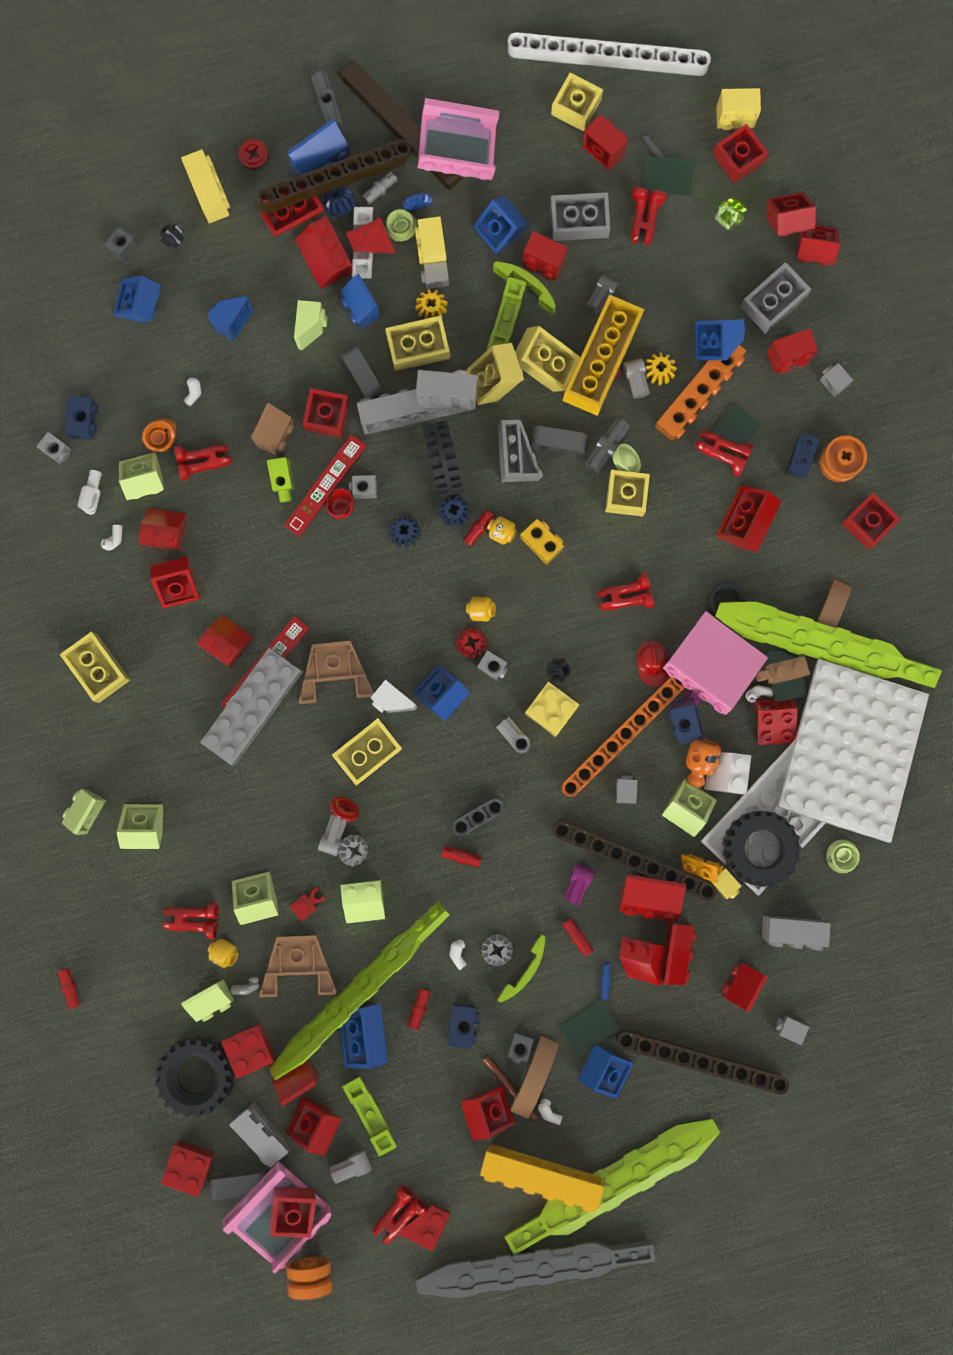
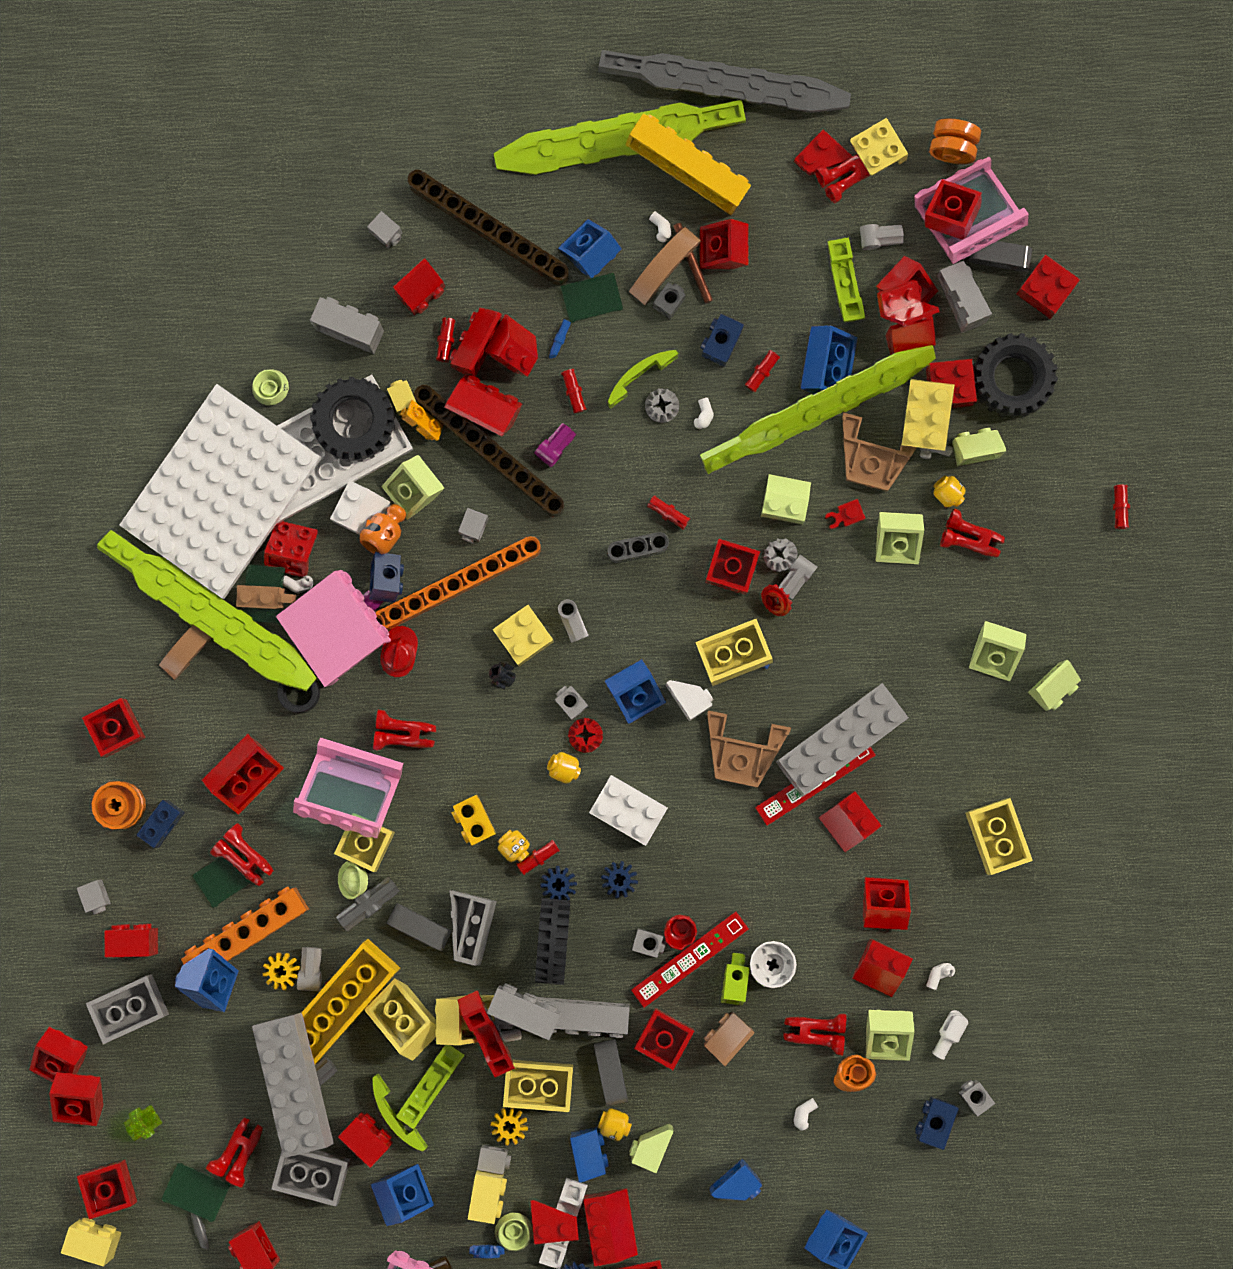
camera: 165 degrees left, 0 degrees up
(249, 490) = (768, 952): none -> white wheel
(259, 1014) = (928, 414): none -> light yellow brick
(310, 1107) = (904, 305): none -> red bracket
(345, 333) = (614, 1124): none -> yellow head
(376, 1250) = (879, 147): none -> light yellow bracket
(390, 825) = (732, 566): none -> red brick
(415, 590) = (628, 810): none -> white brick
(469, 363) = (486, 1032): none -> red arch
(618, 275) = (292, 1085): none -> light grey brick
(655, 531) = (349, 788): none -> panel
(705, 947) = (445, 339): none -> red pin

